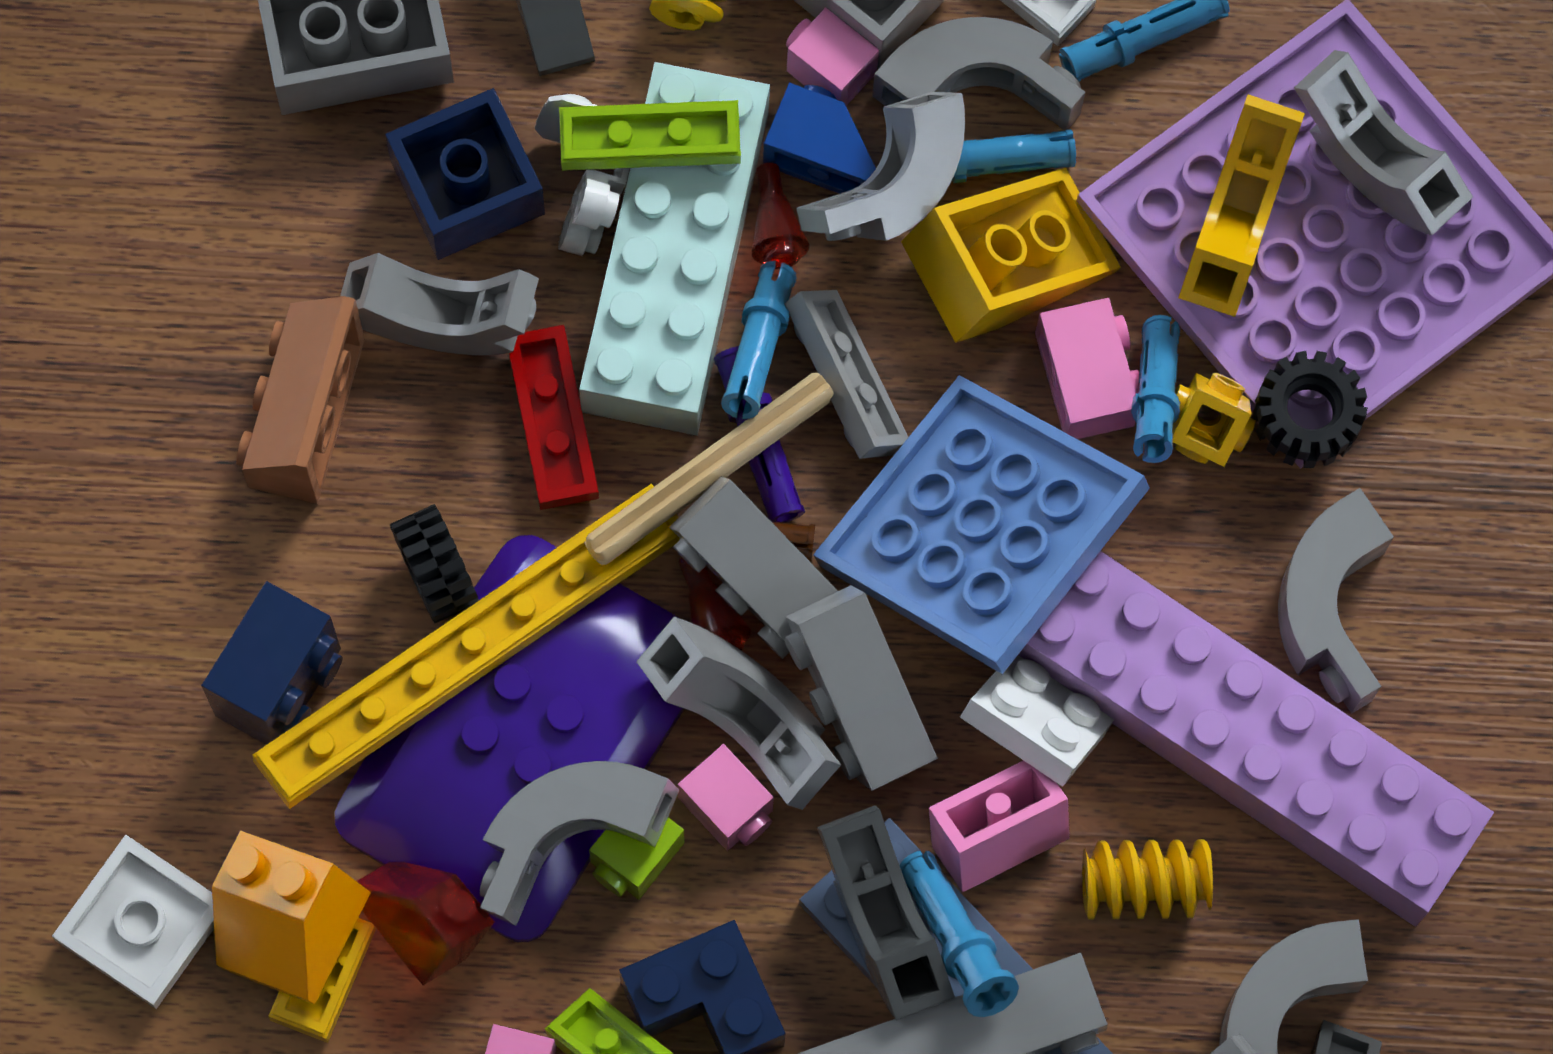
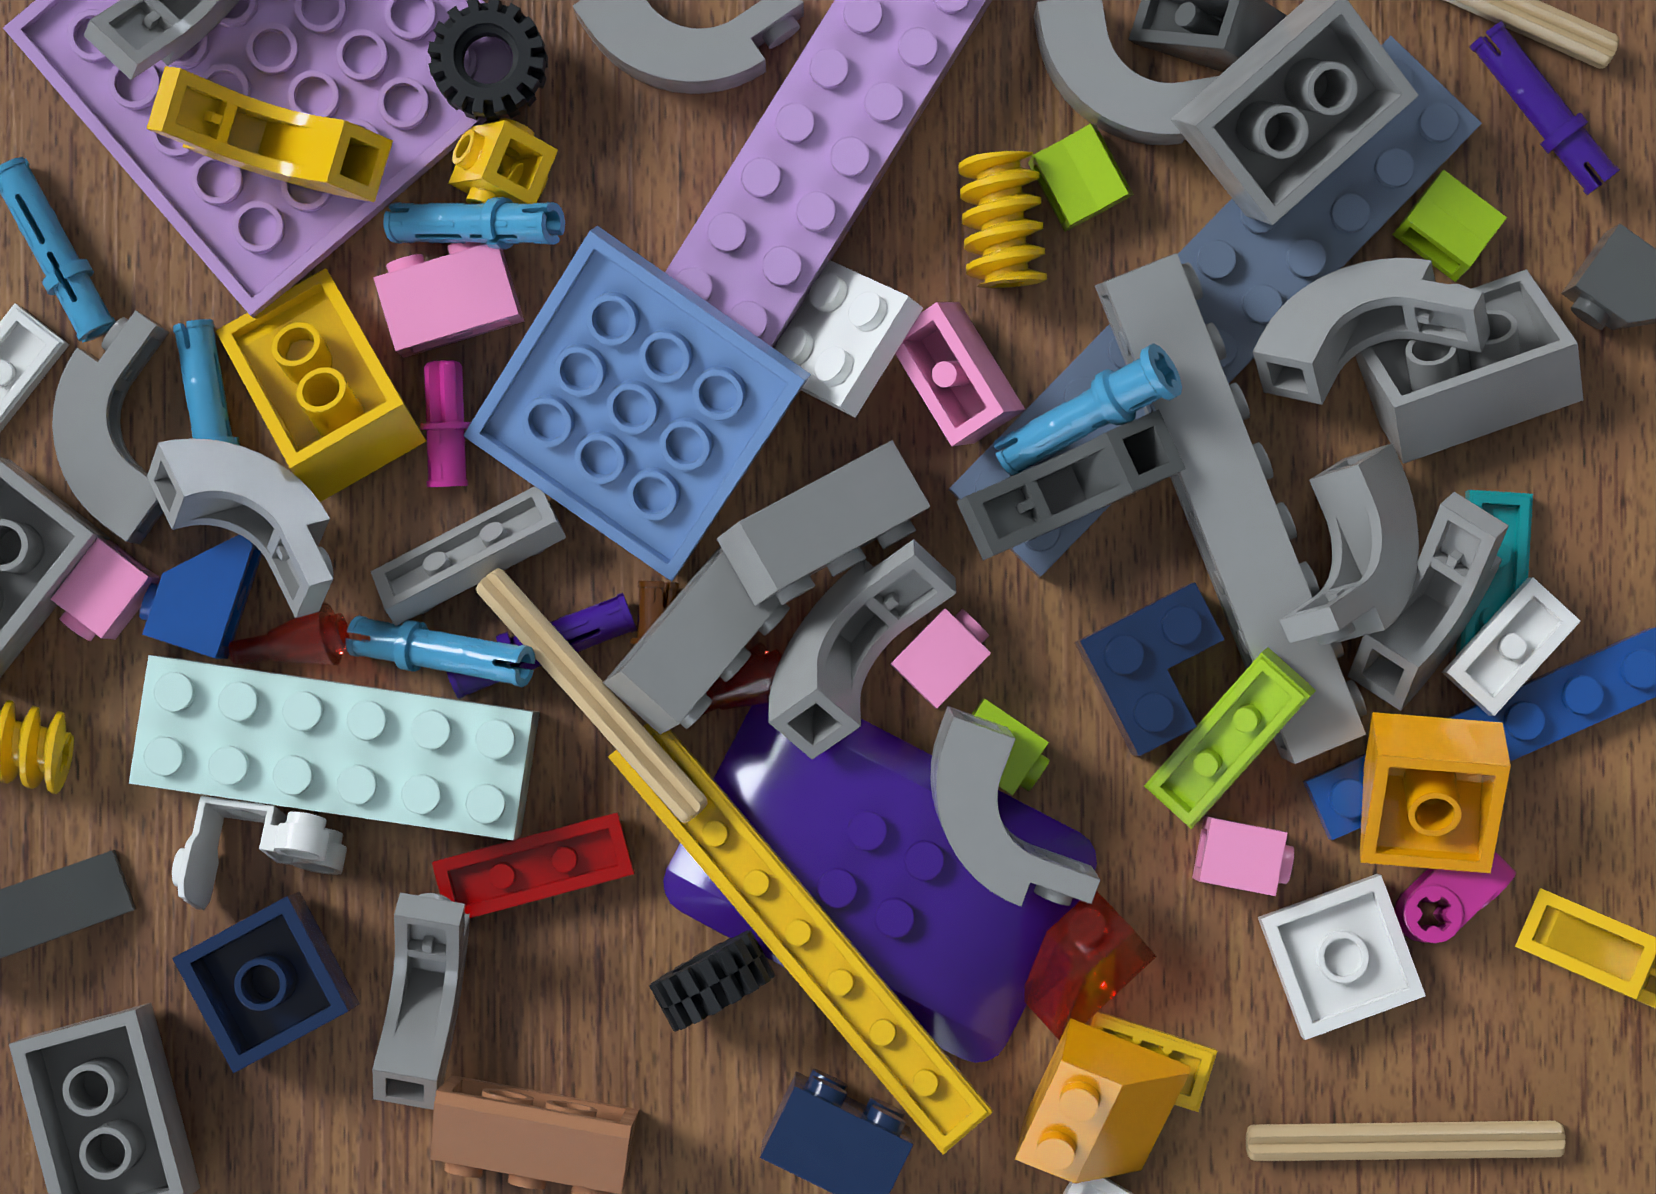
camera: 90 degrees left, 15 degrees up
(650, 135) = (221, 782): lime tile -> none
(970, 360) = (445, 424): none -> dark pink axle
(1189, 963) = (1080, 177): none -> lime piece

